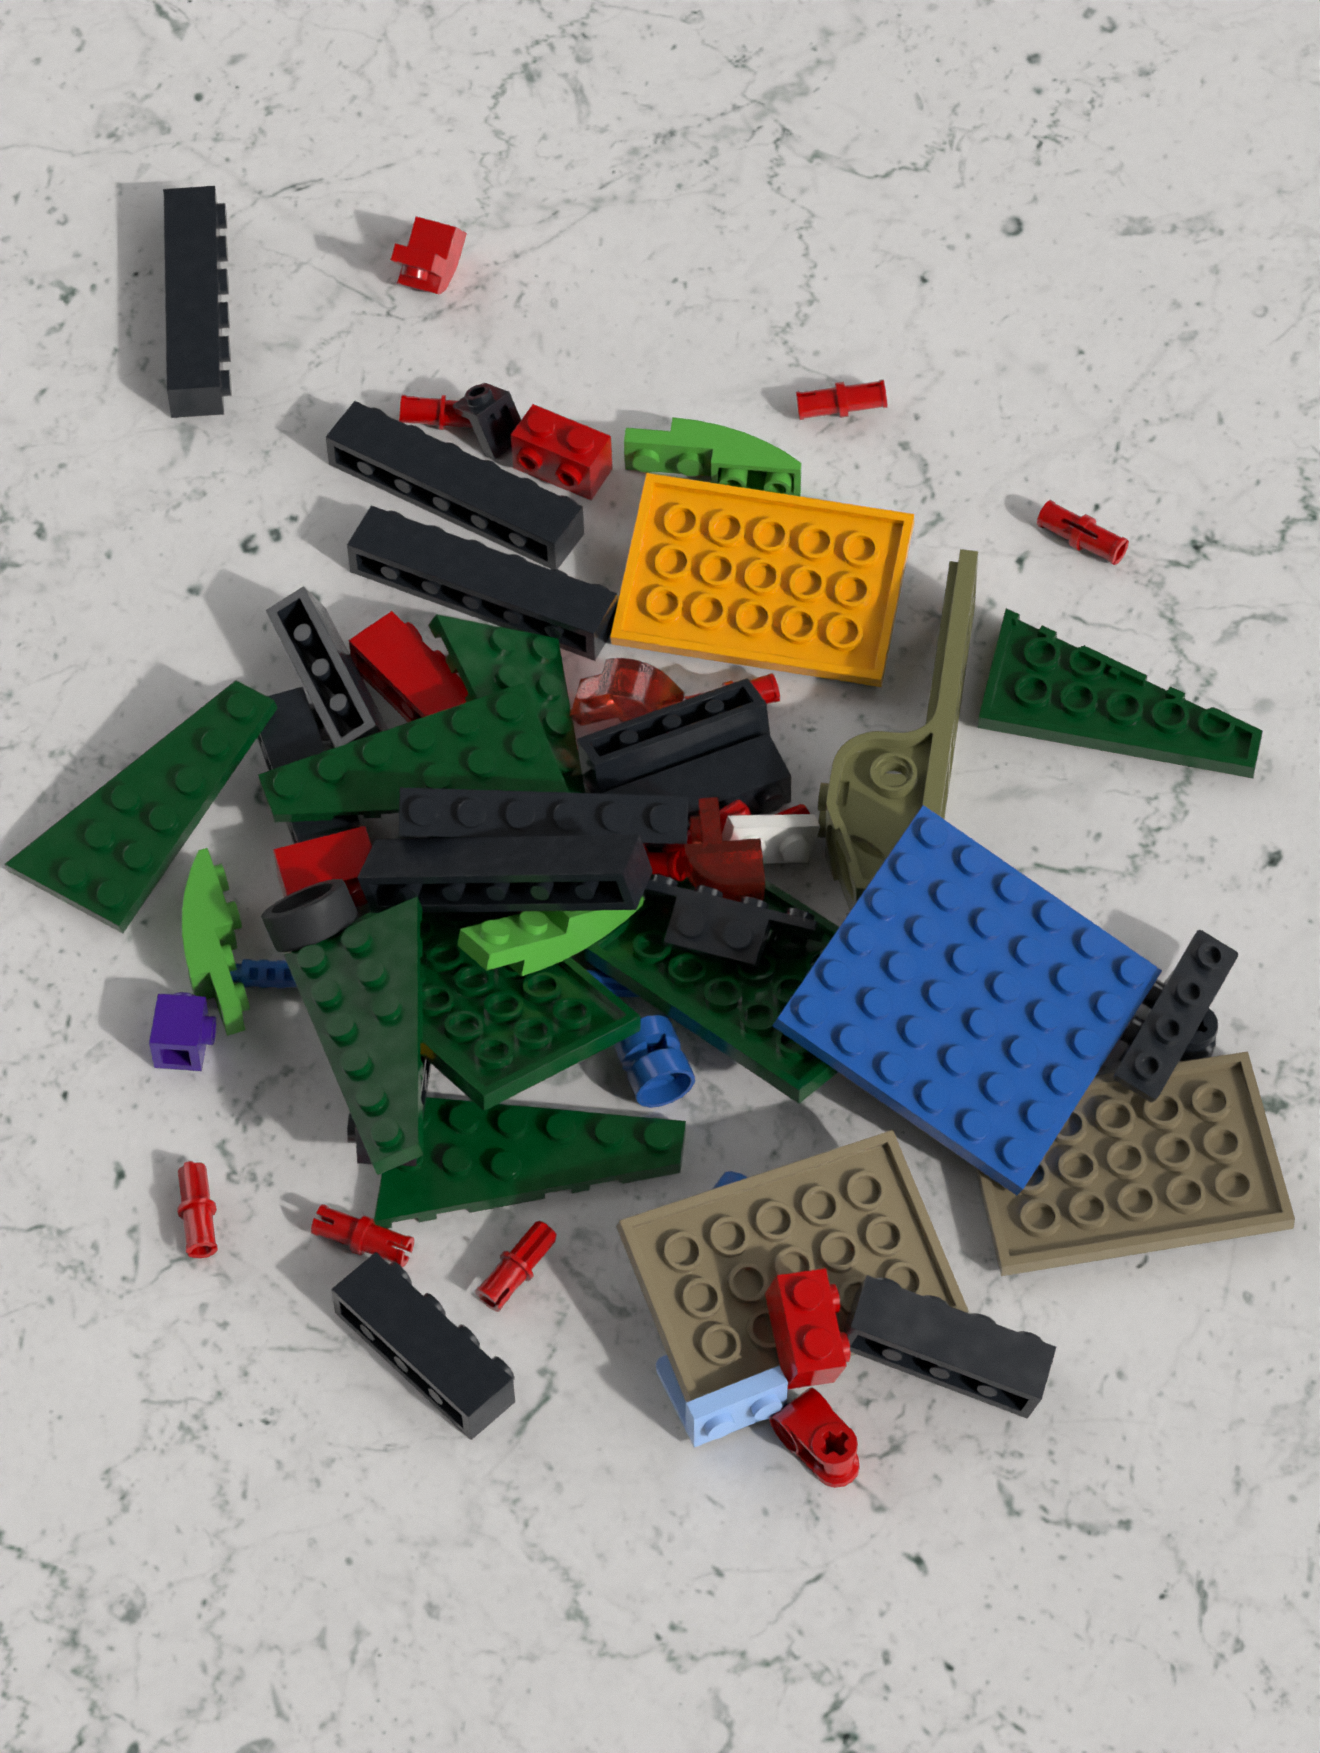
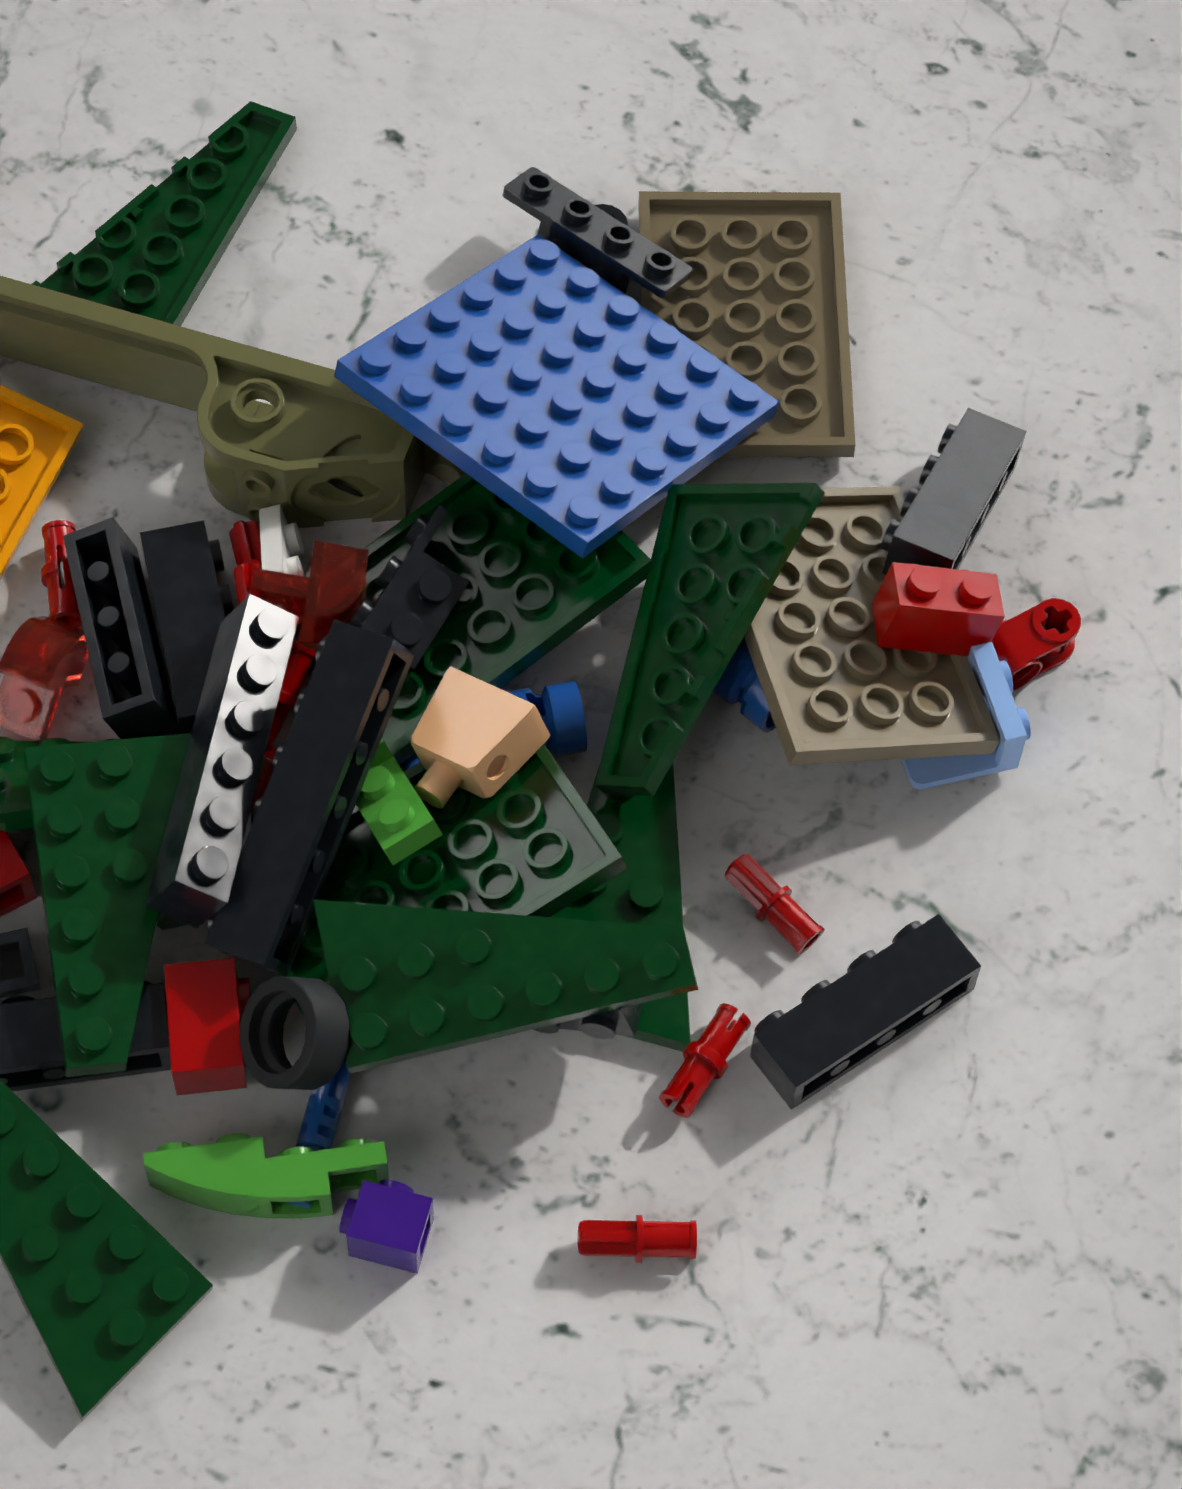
camera: 85 degrees left, 5 degrees up
(589, 982) = (473, 738): none -> light nougat torso
(783, 1137) = (709, 578): none -> dark green wing

